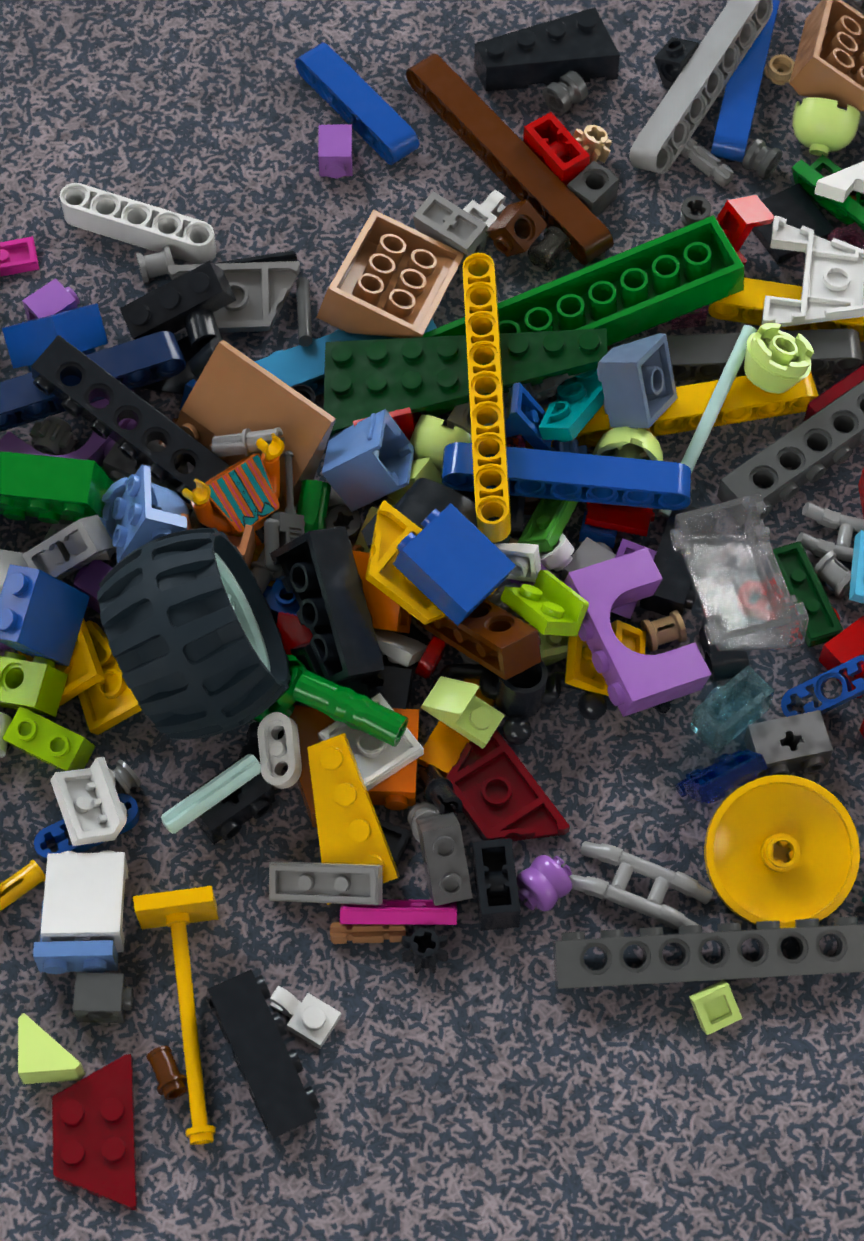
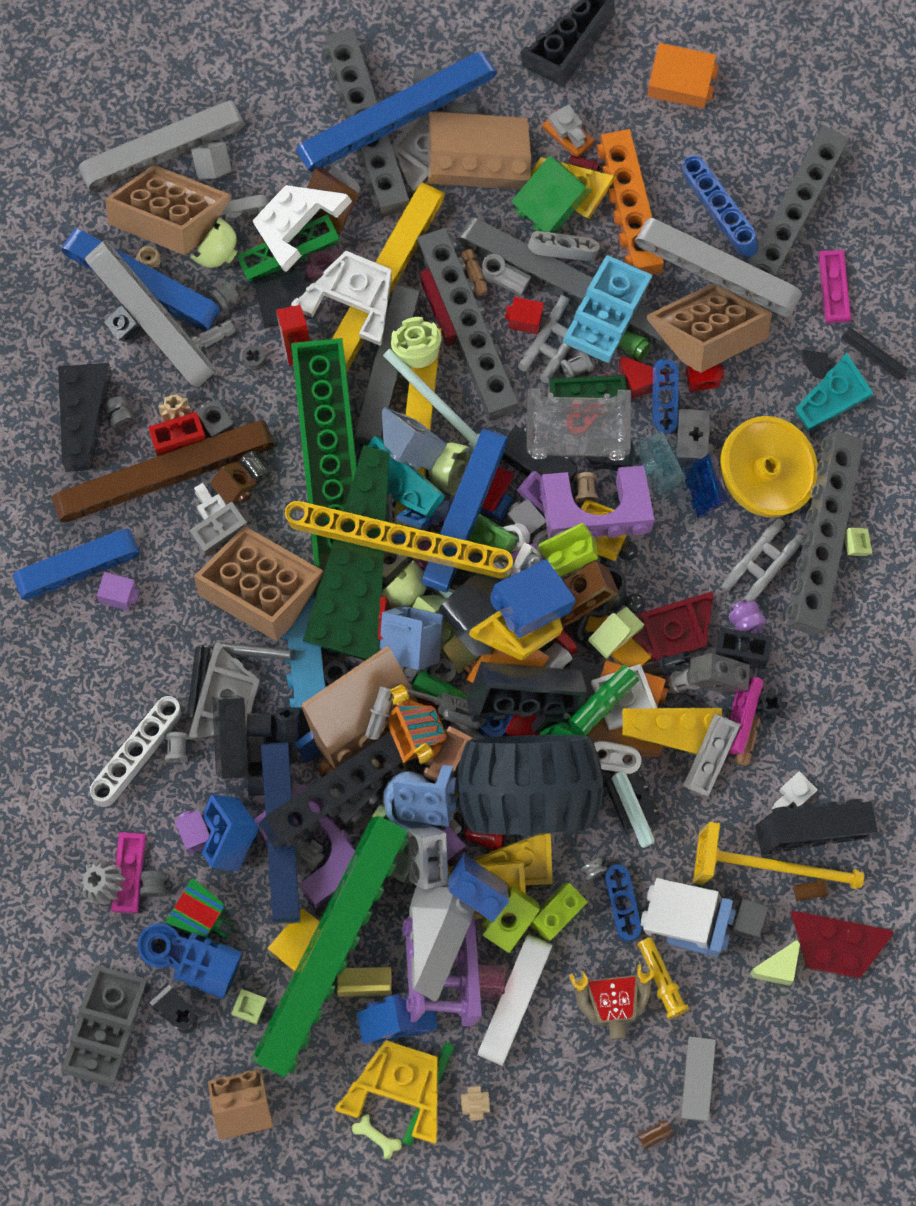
camera: 75 degrees left, 10 degrees up
(90, 803) = (614, 891): white bracket -> none

